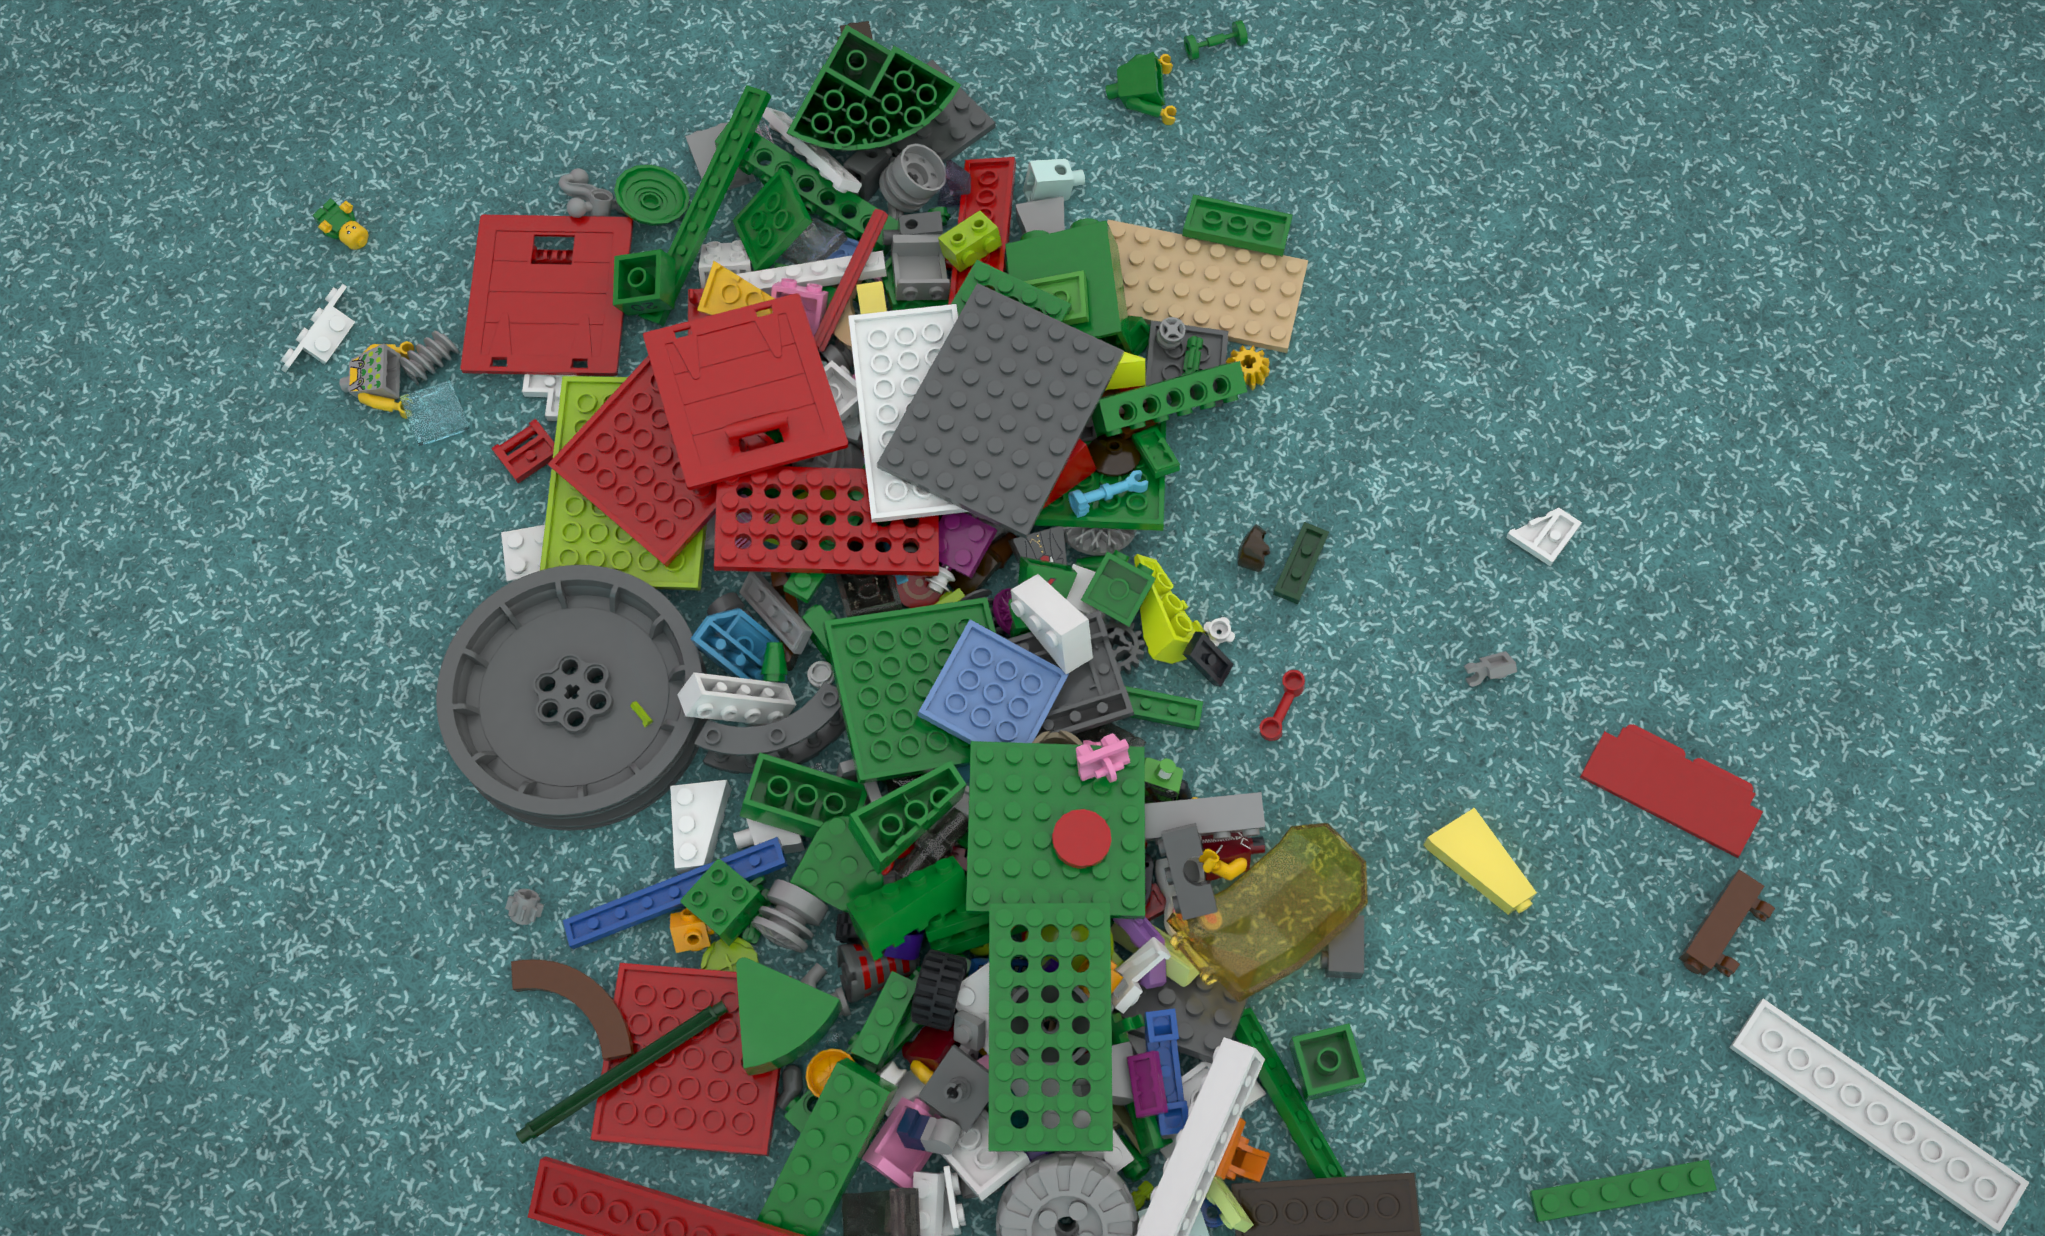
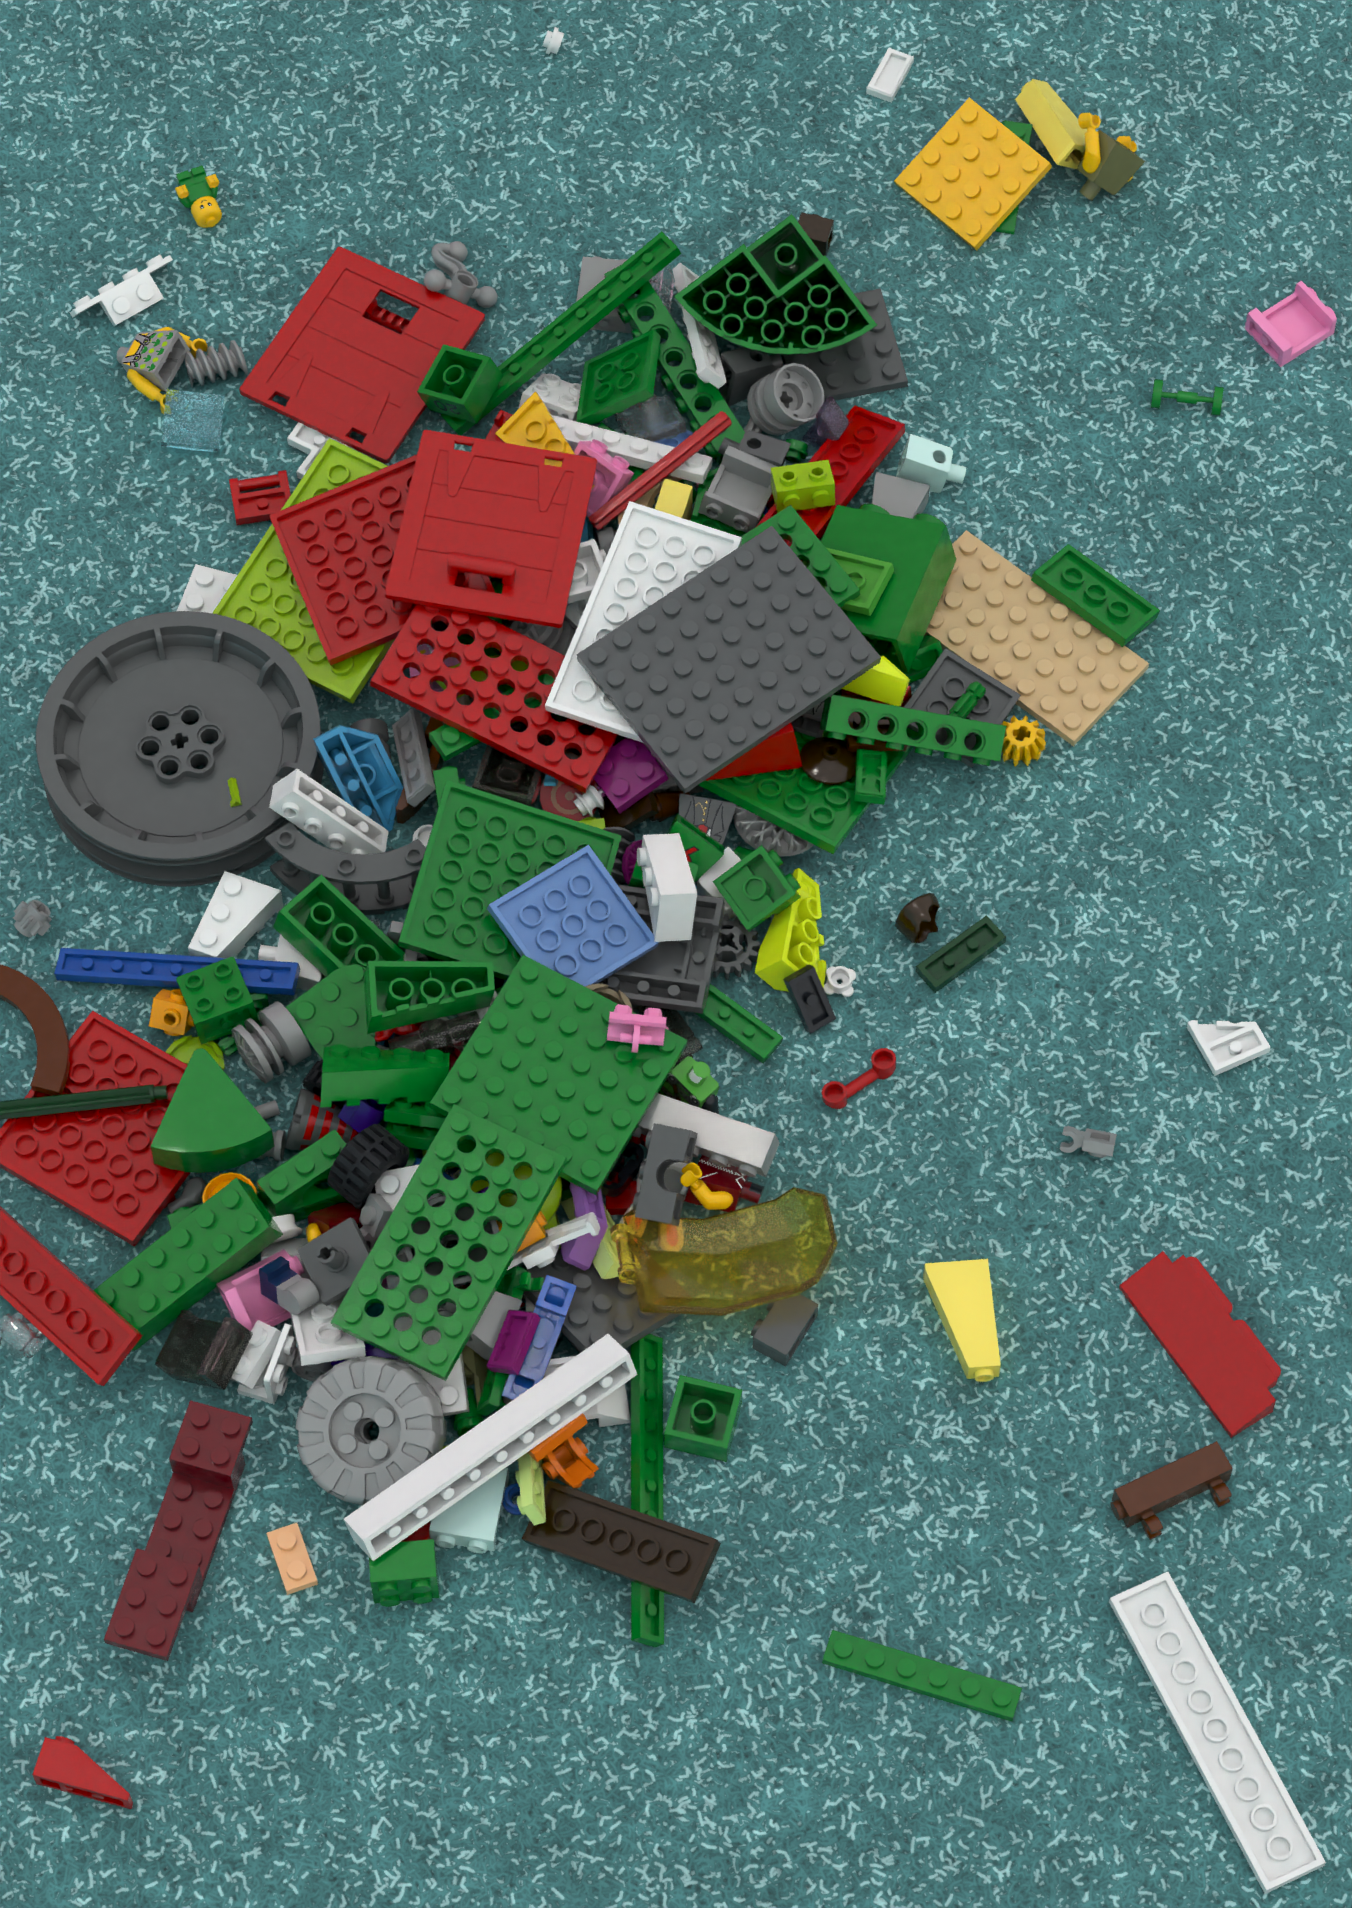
camera: 25 degrees right, 5 degrees down
(651, 195) = (517, 300): green hat -> none
(774, 663) = (385, 804): green cone -> none
(1079, 500) = (825, 794): medium azure piece -> none
(1081, 838) = (574, 1090): red tile -> none
(1142, 86) = (1080, 409): green torso -> none
(1168, 327) = (958, 662): light grey wheel -> none

